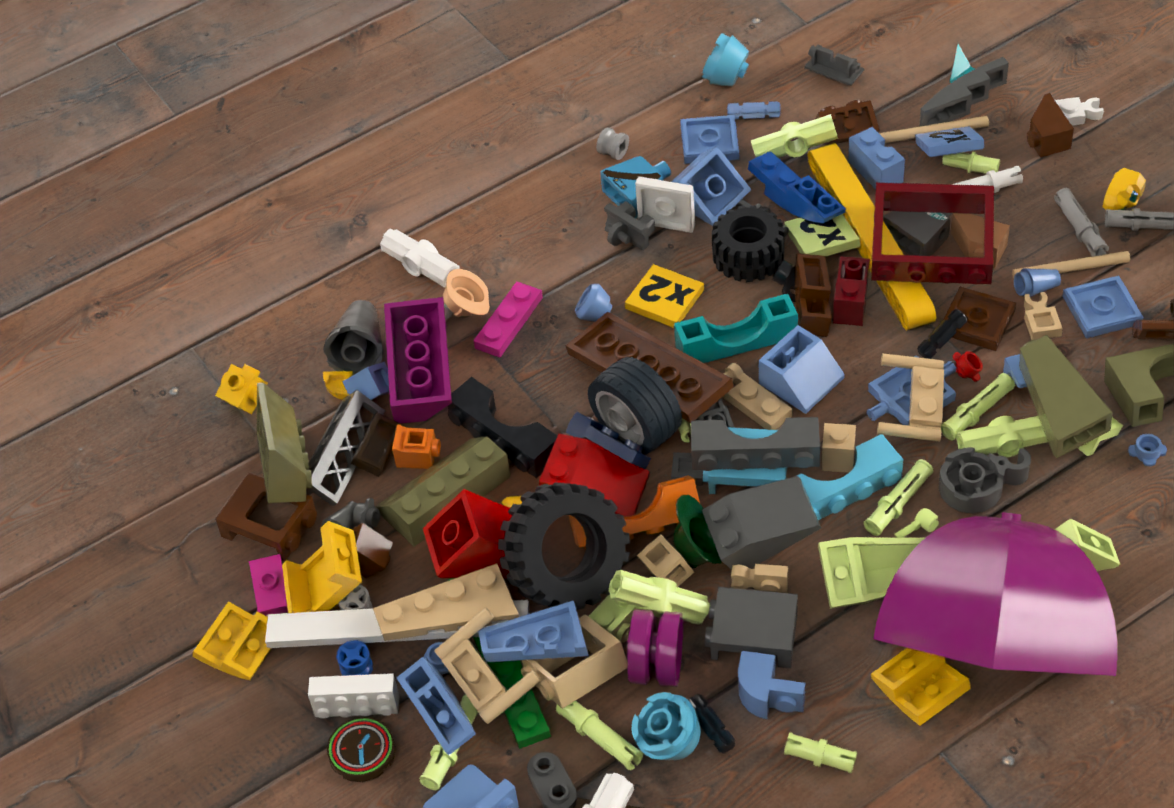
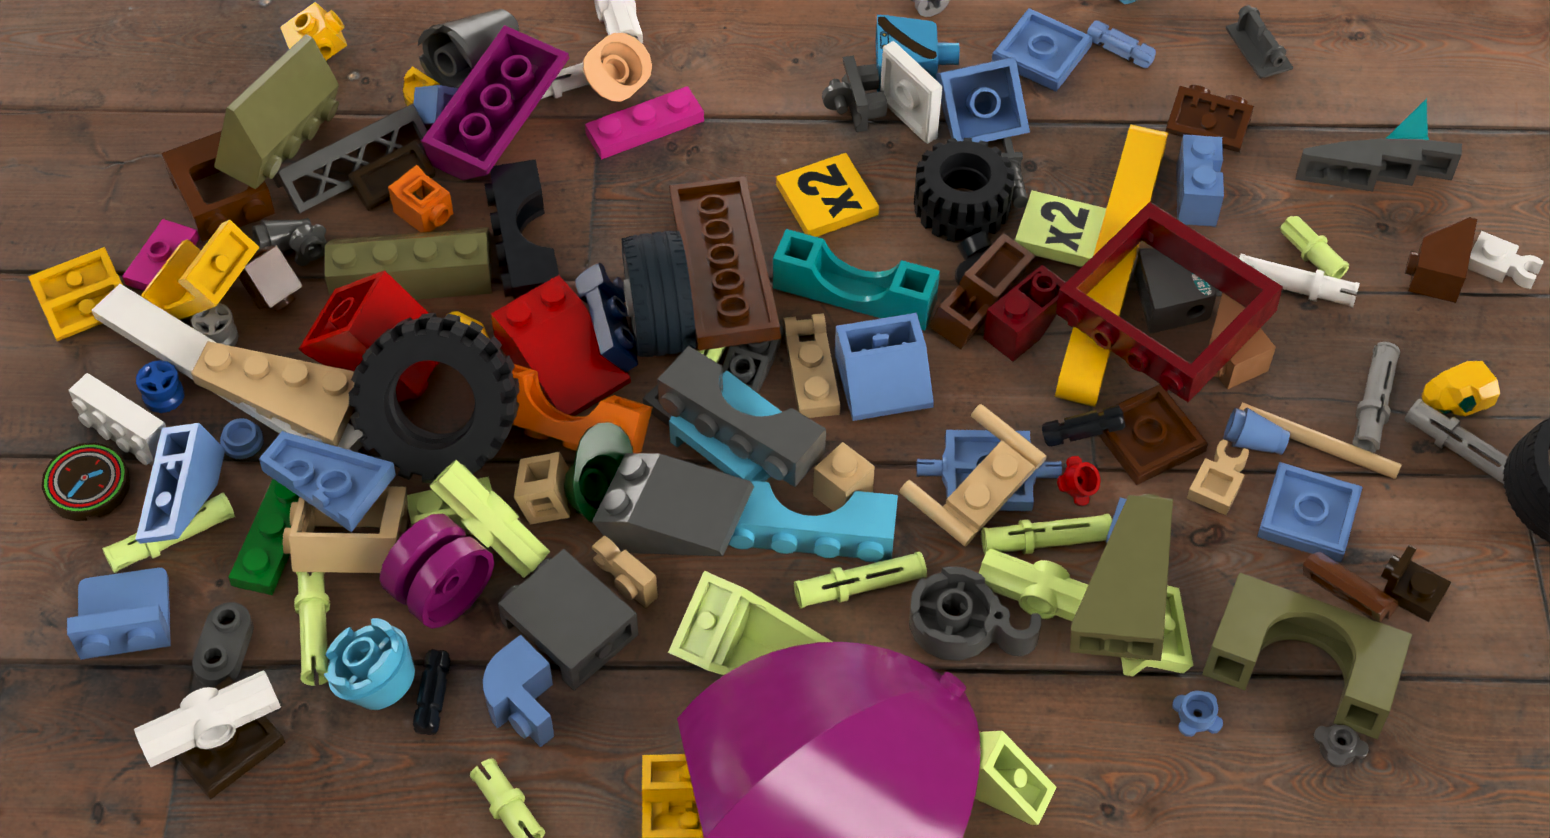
camera: 30 degrees right, 5 degrees up
(476, 676) = (241, 477): tan plate -> none
(593, 303) = (739, 157): medium blue cone -> none
(794, 194) = (1070, 159): blue slope -> none
(808, 135) = (1126, 101): yellowish green piece -> none
(907, 134) = (1308, 185): tan bar -> none
(924, 519) = (864, 622): yellowish green hand -> none
(949, 141) = (1305, 208): medium blue tile -> none

